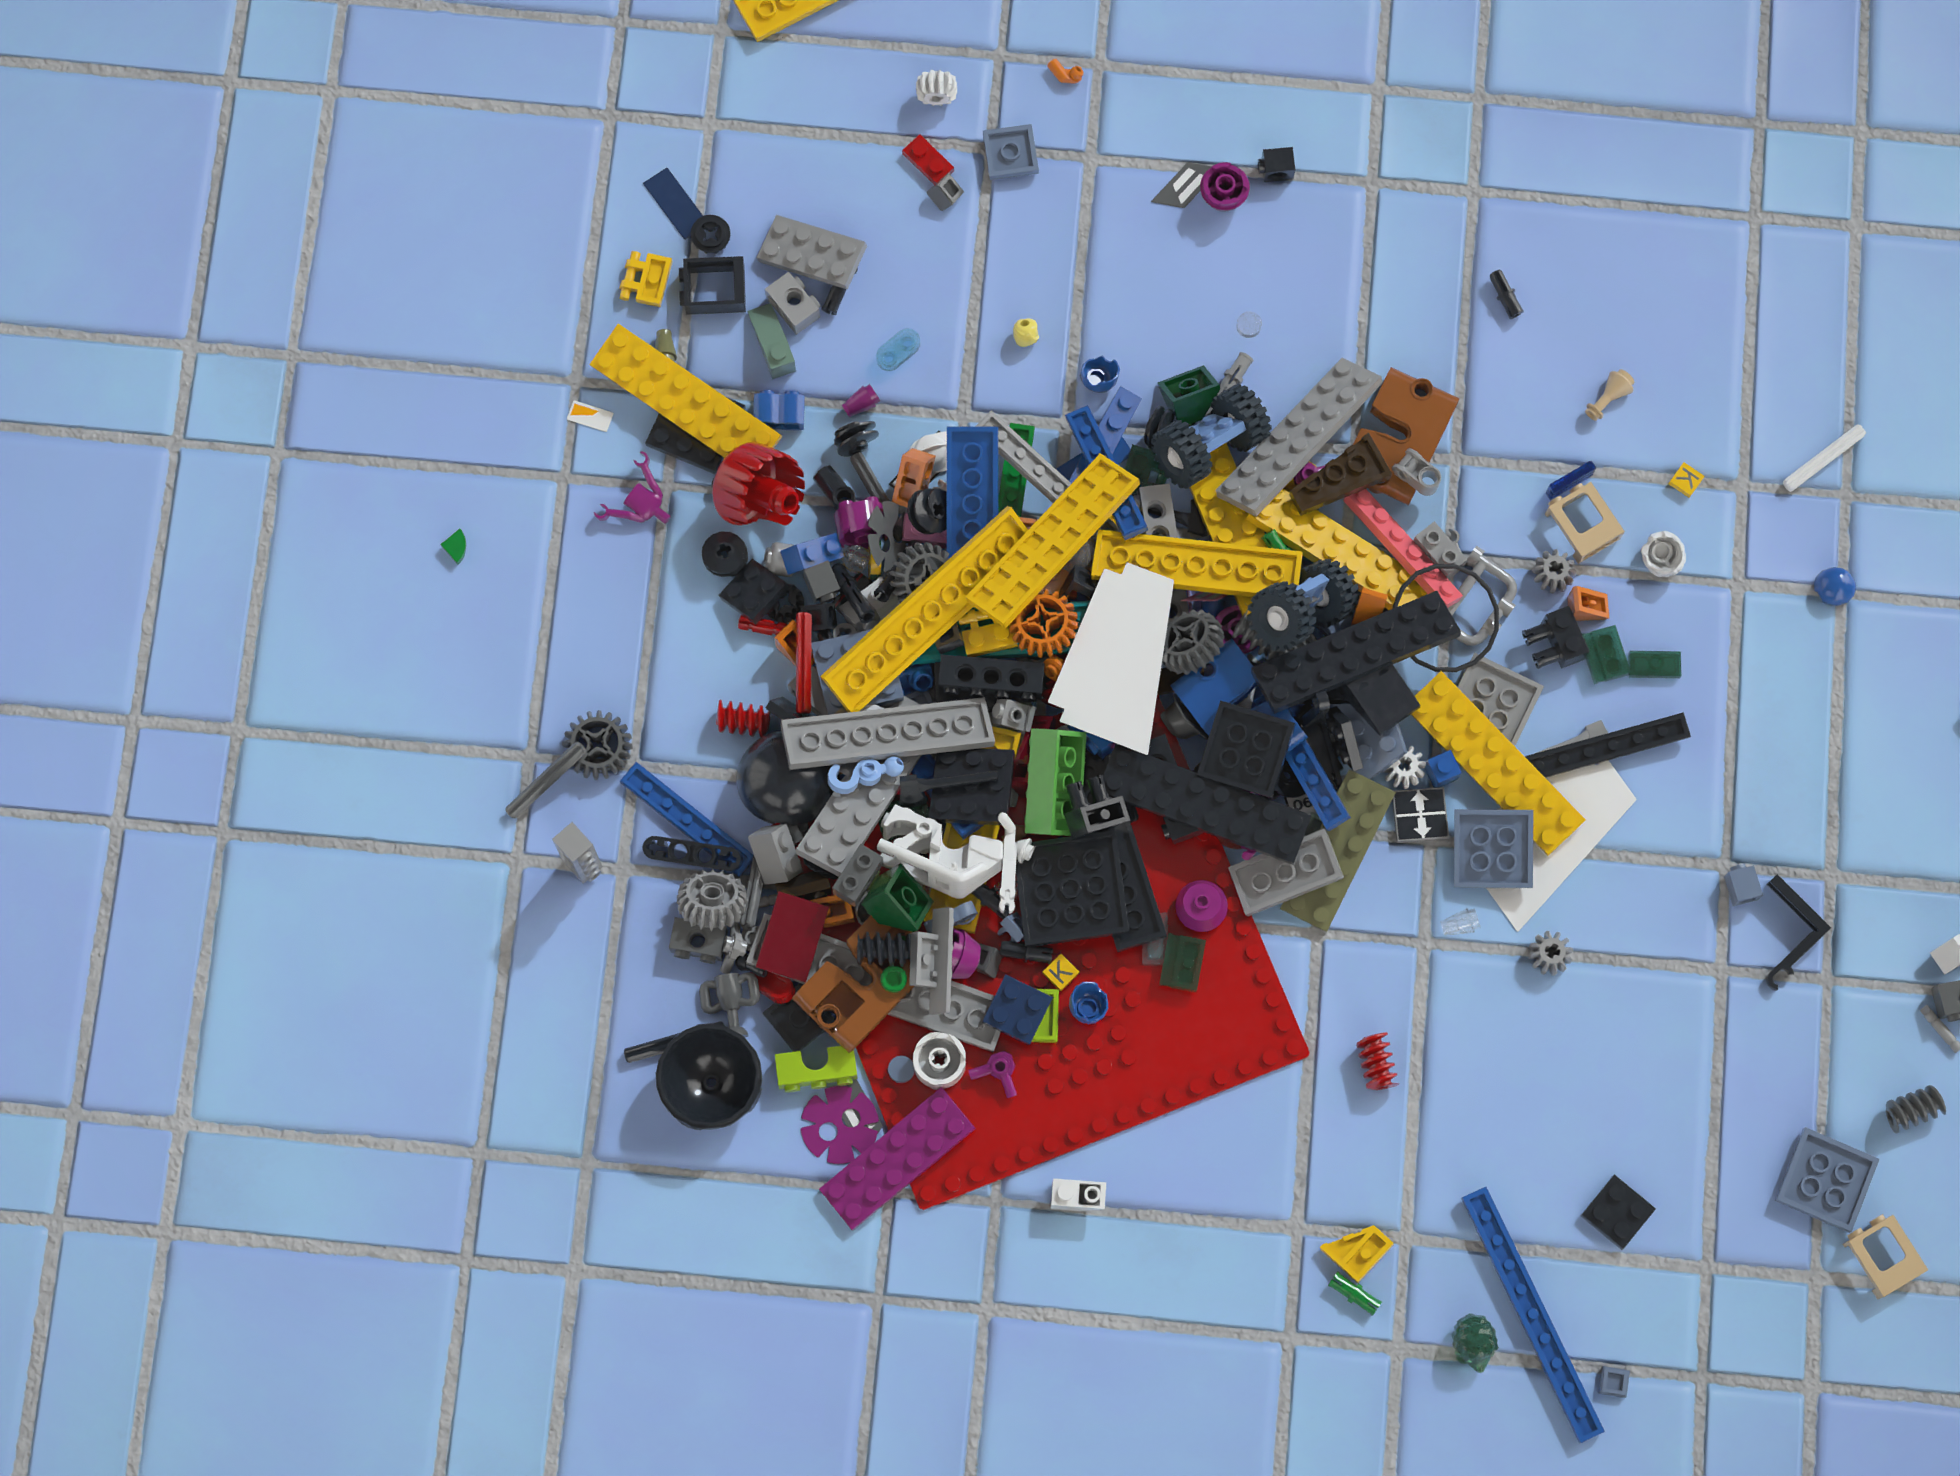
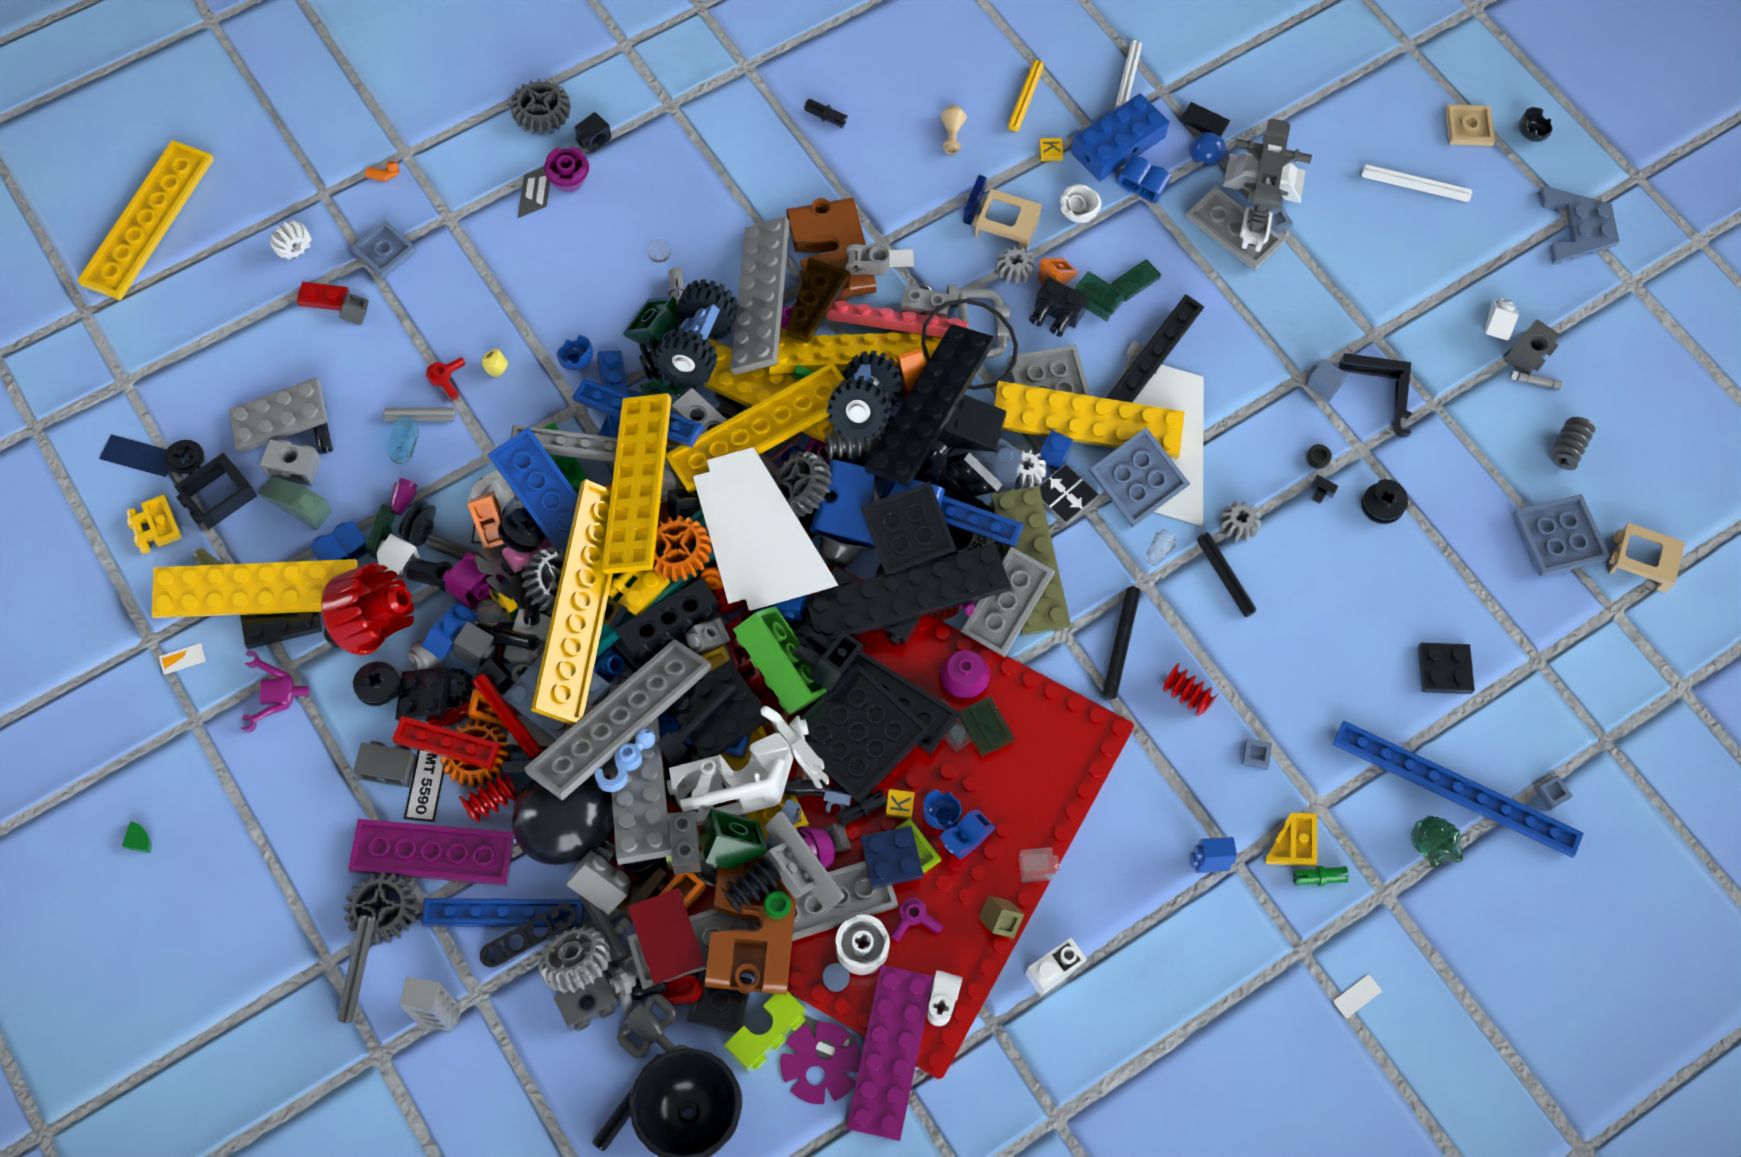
camera: 40 degrees left, 10 degrees down
(668, 729) = (432, 852): none -> magenta plate
(683, 628) = (385, 764): none -> dark grey brick
(704, 667) = (425, 787): none -> white sticker
(740, 649) = (446, 743): none -> red plate
(749, 674) = (462, 771): none -> orange gear
(816, 453) = (396, 555): none -> white slope
(821, 421) = (381, 529): none -> clear green plate
(929, 335) = (429, 414): none -> light grey axle
(971, 309) = (439, 375): none -> red piece
(974, 1147) = (944, 994): none -> white piece
(1067, 1123) = (1001, 916): none -> olive panel
(1092, 1038) = (967, 834): none -> blue brick
(1129, 1106) = (1038, 864): none -> clear brick
(1270, 101) = (540, 102): none -> dark grey gear
(1276, 1208) = (1213, 855): none -> blue brick
(1302, 1407) = (1357, 996): none -> white sticker
(1357, 979) = (1121, 643): none -> black axle
(1390, 1157) = (1257, 754): none -> sand blue tile
(1459, 487) = (901, 258): none -> white sticker
(1499, 989) = (1226, 574): none -> black axle
(1651, 979) = (1323, 487): none -> black tile
(1675, 948) = (1319, 456): none -> pearl dark grey tile
(1681, 1032) = (1384, 501): none -> black piece
(1708, 408) = (1025, 95): none -> yellow axle
(1746, 572) = (1144, 179): none -> blue brick
(1758, 515) = (1118, 136): none -> blue brick
(1789, 682) = (1222, 221): none -> light grey plate
(1837, 702) = (1280, 220): none -> sand blue tile
(1858, 555) = (1204, 119): none -> black tile
(1863, 653) = (1268, 177): none -> piece

